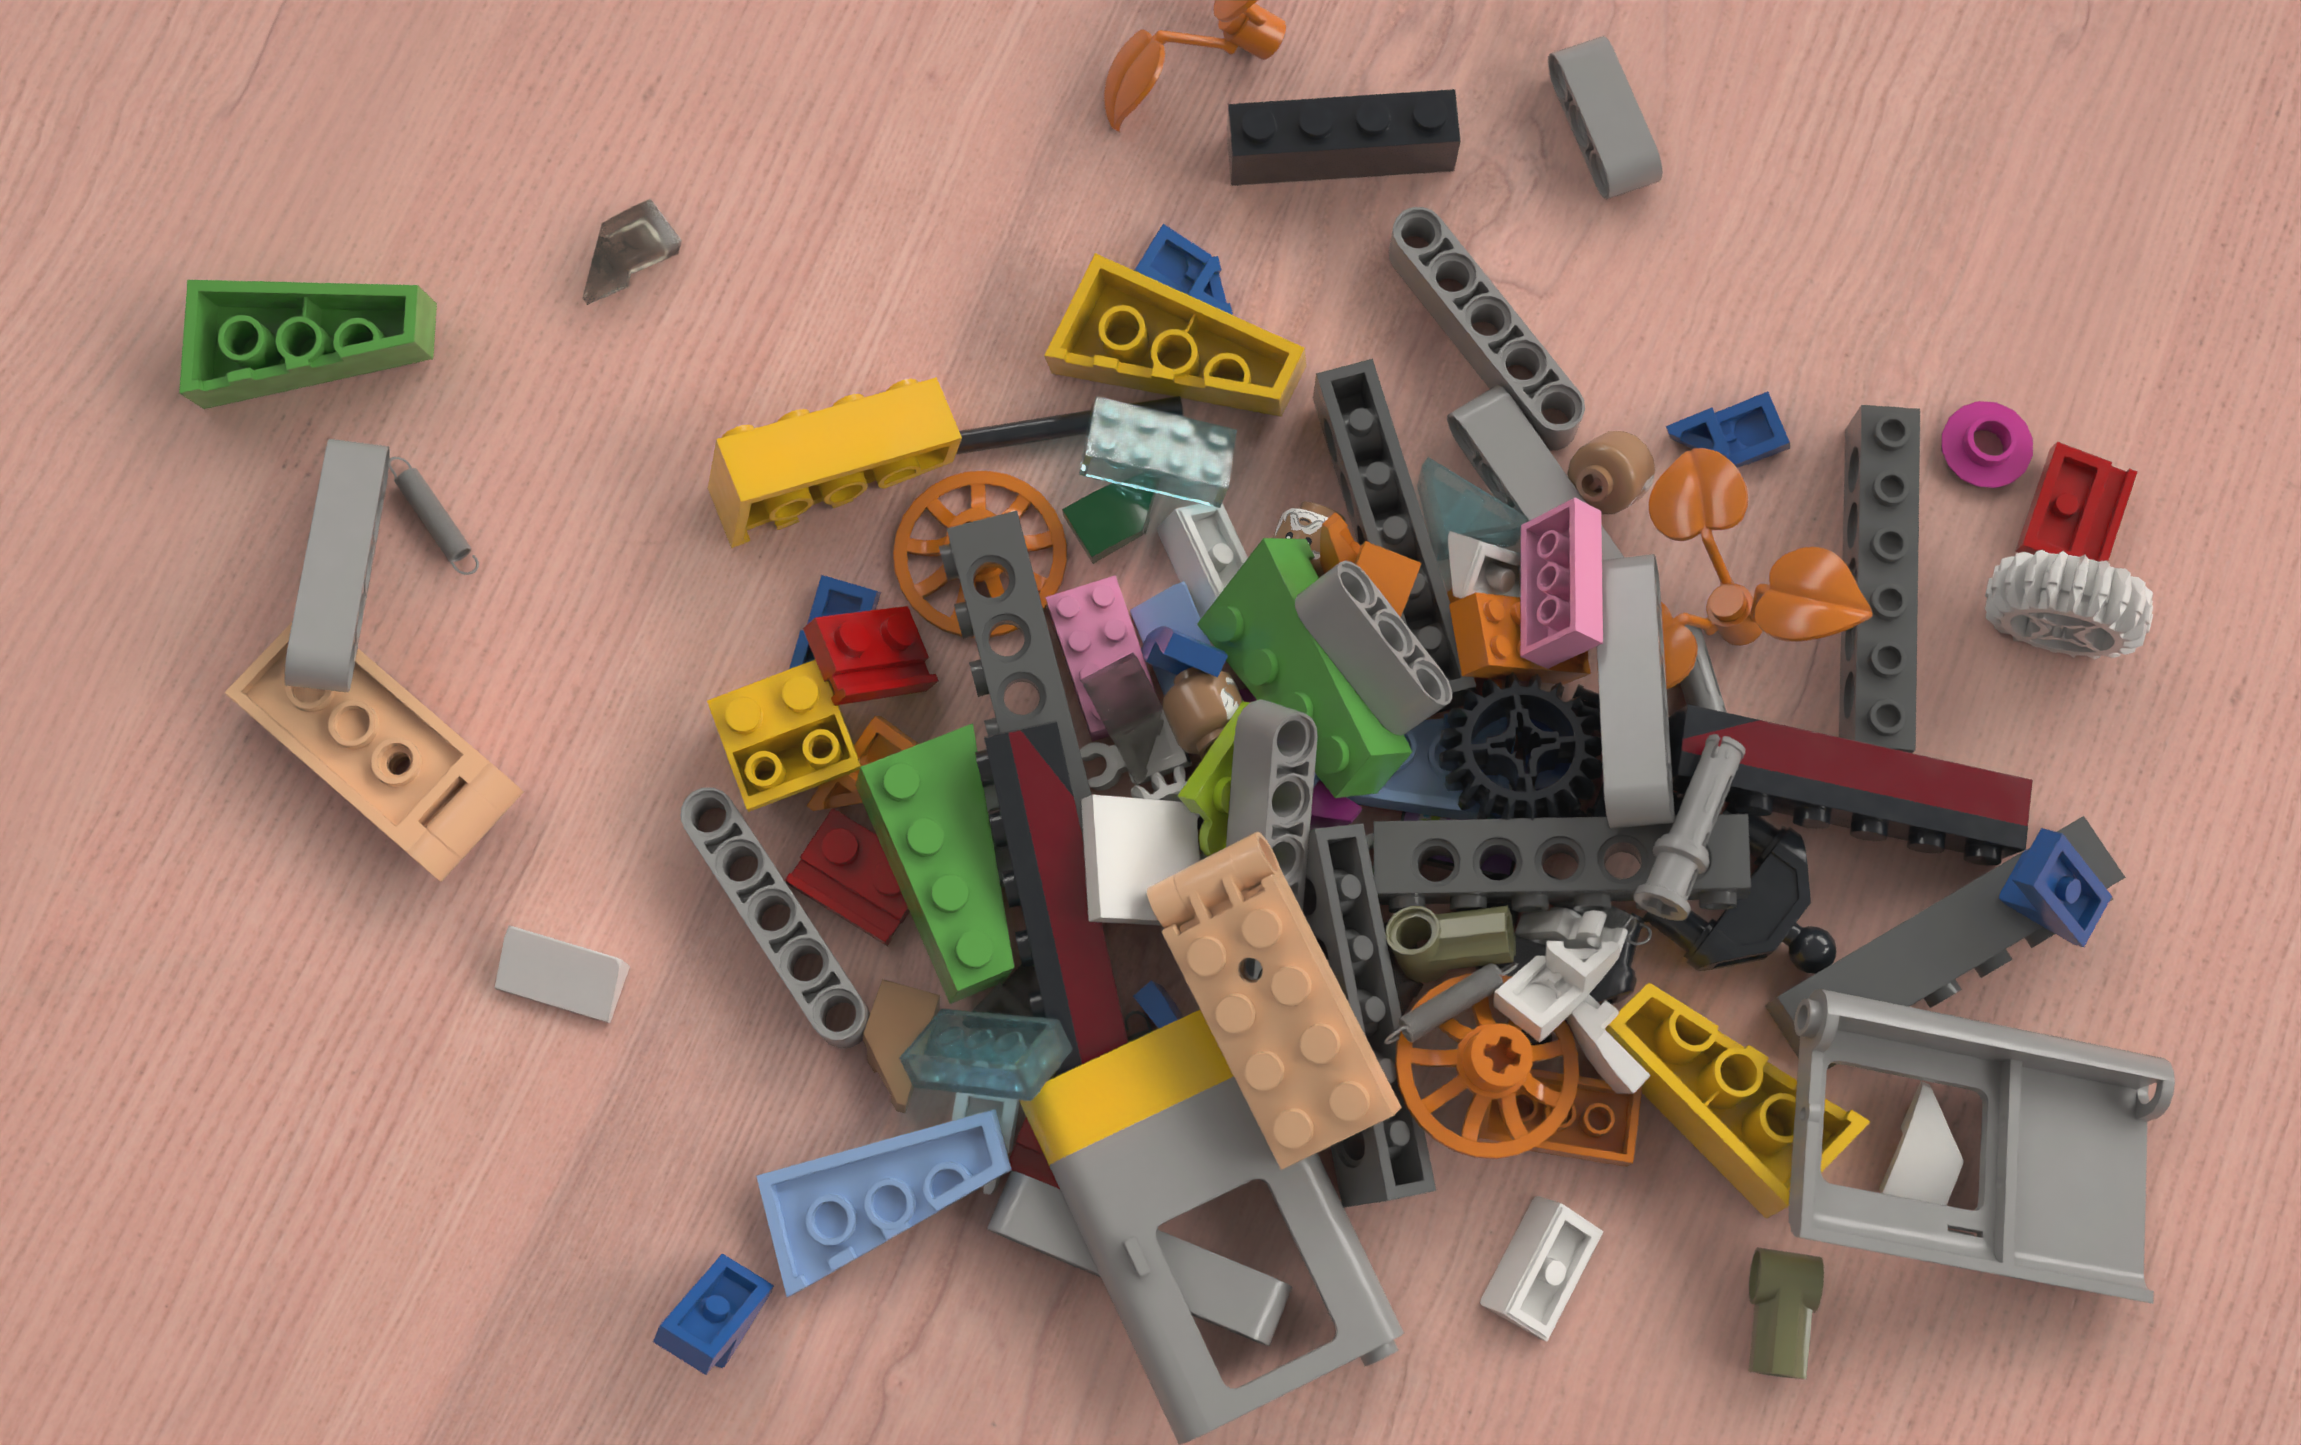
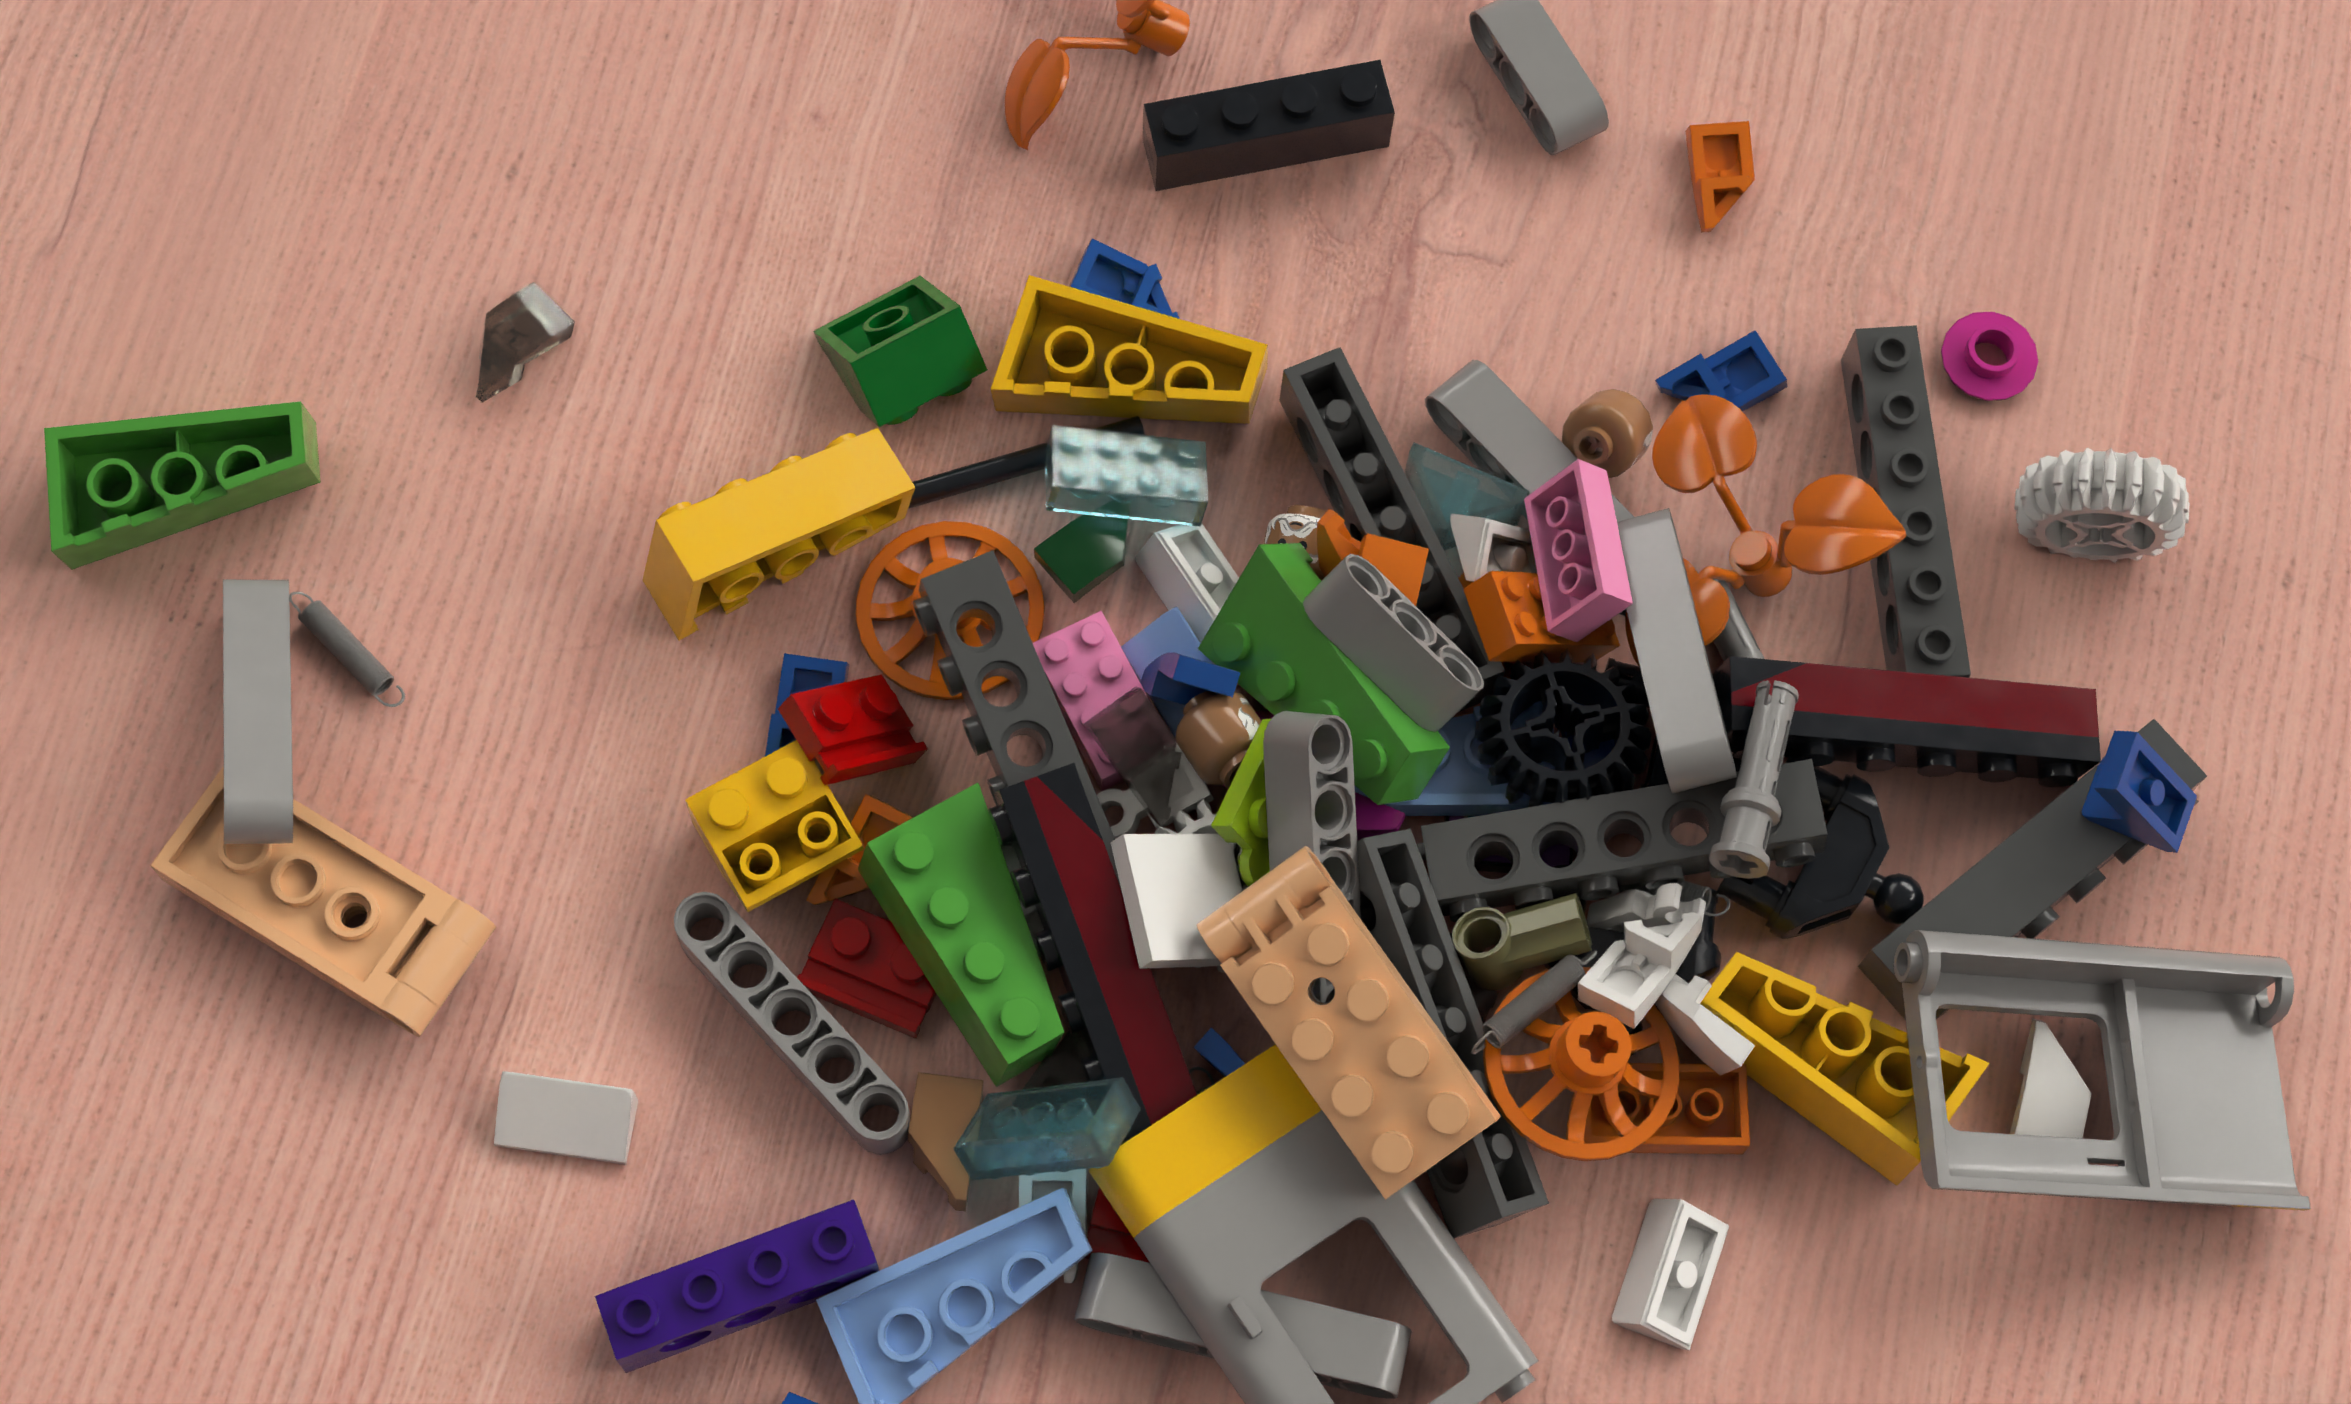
camera: 15 degrees left, 5 degrees down
(687, 1153) = (736, 1286): none -> dark purple brick
(972, 307) = (902, 351): none -> green slope
(1483, 303) = (1440, 277): light grey beam -> none
(1760, 231) = (1719, 168): none -> orange slope
(1785, 1295) = (1931, 1259): olive piece -> none
(2076, 505) = (2092, 402): red plate -> none

